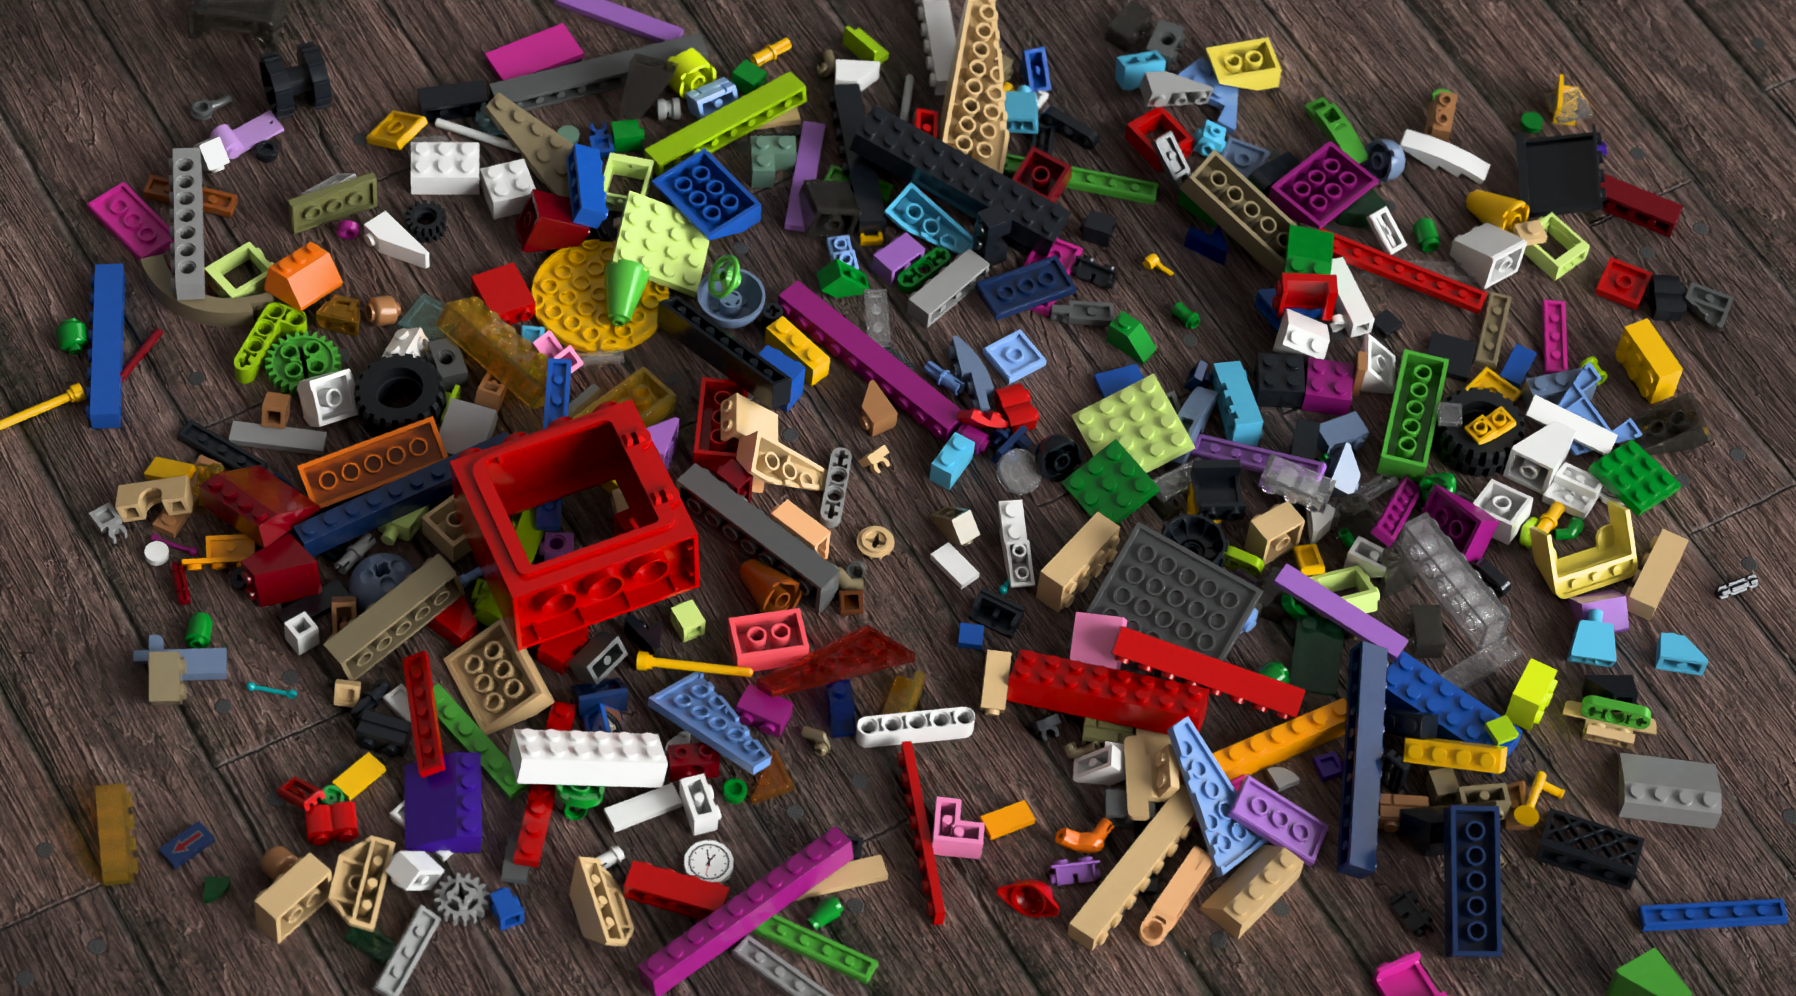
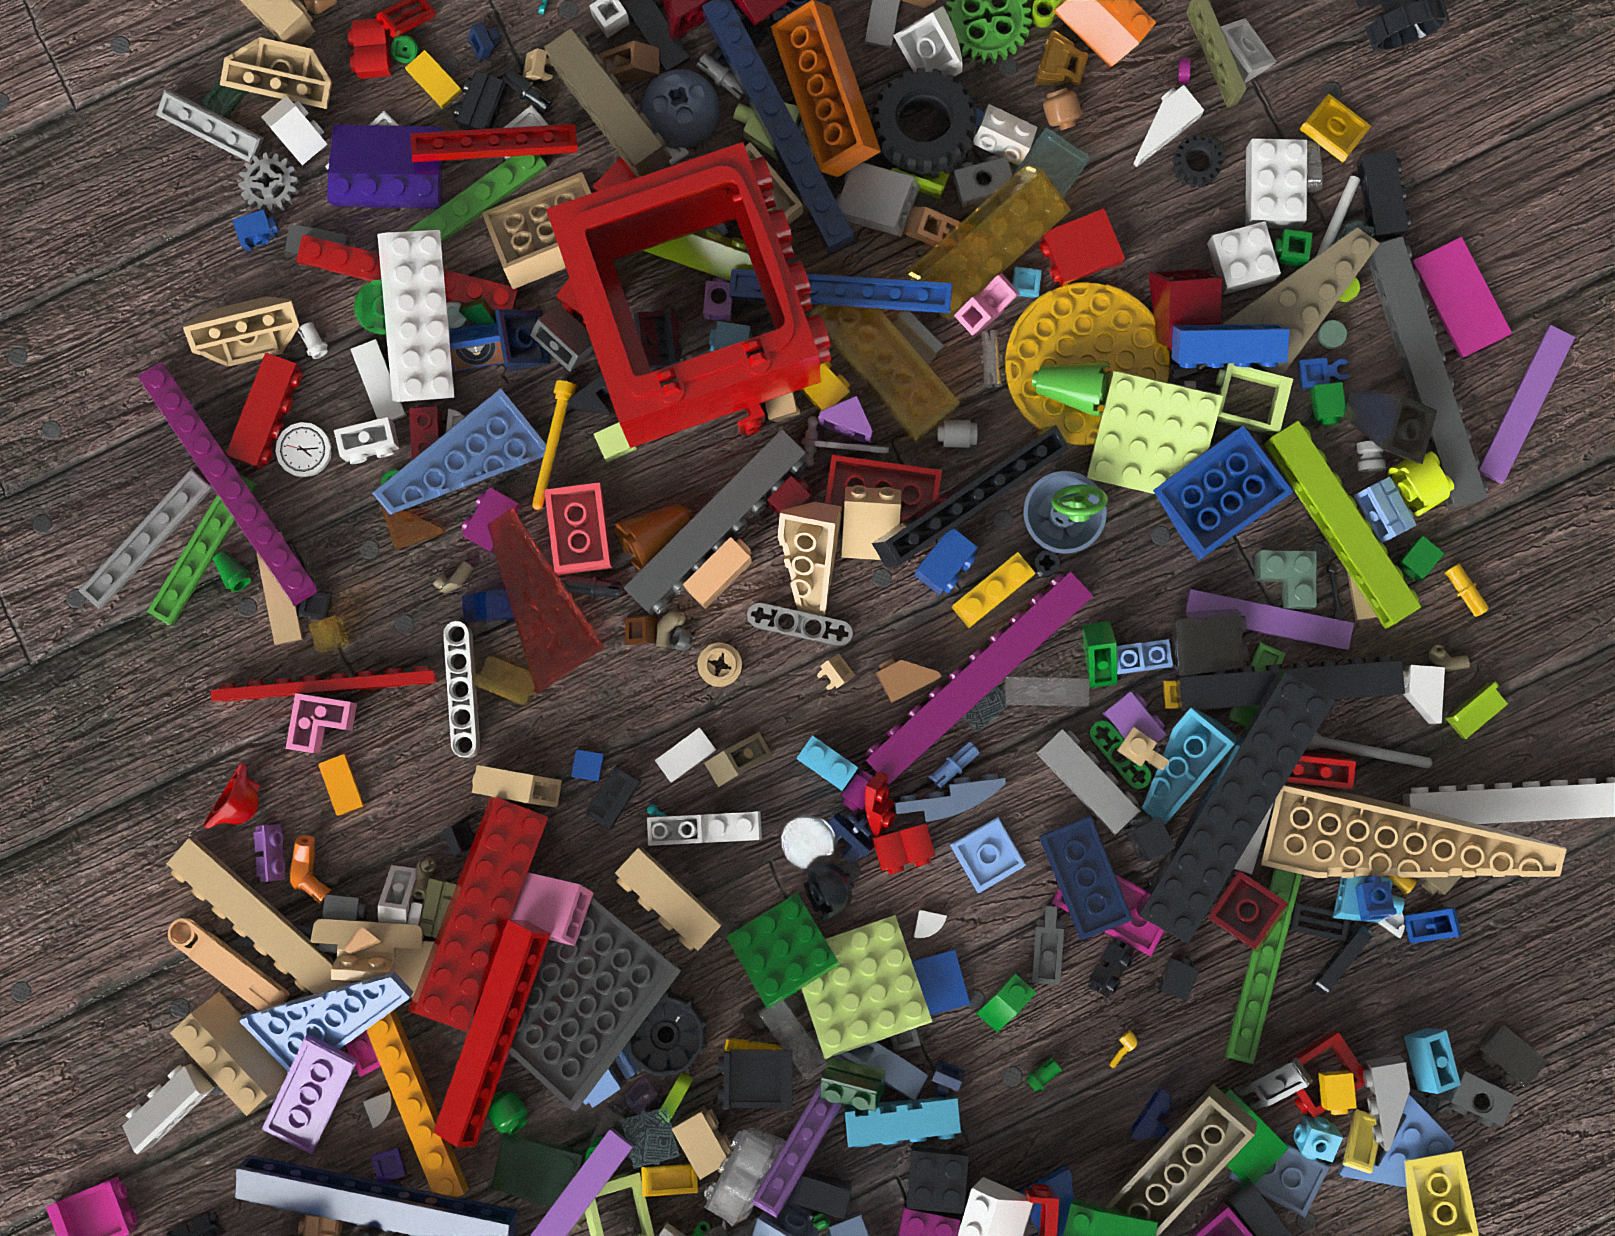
camera: 105 degrees right, 30 degrees up
(324, 735) = (482, 40): none -> dark blue tile
(500, 150) = (1293, 248): none -> green brick
(577, 722) = (478, 312): none -> dark green tile
(598, 524) = (728, 334): none -> medium azure brick
(667, 374) = (957, 433): none -> light grey brick
(681, 452) = (811, 443): none -> light grey piece
(816, 633) = (592, 587): none -> black axle
(875, 829) = (328, 634): none -> clear yellow brick
(921, 246) = (1140, 748): none -> tan plate
(1023, 95) = (1369, 906): none -> blue brick
(1075, 394) = (928, 923): none -> white tile
(1143, 770) = (361, 941): none -> light nougat slope
(1172, 117) = (1337, 1091): none -> yellow brick
(1213, 424) = (852, 1084): none -> dark green brick
(1214, 112) = (1361, 1146): none -> light yellow tile
(1271, 563) = (651, 1137): none -> clear light blue piece
(1307, 929) = (166, 1107): none -> white slope

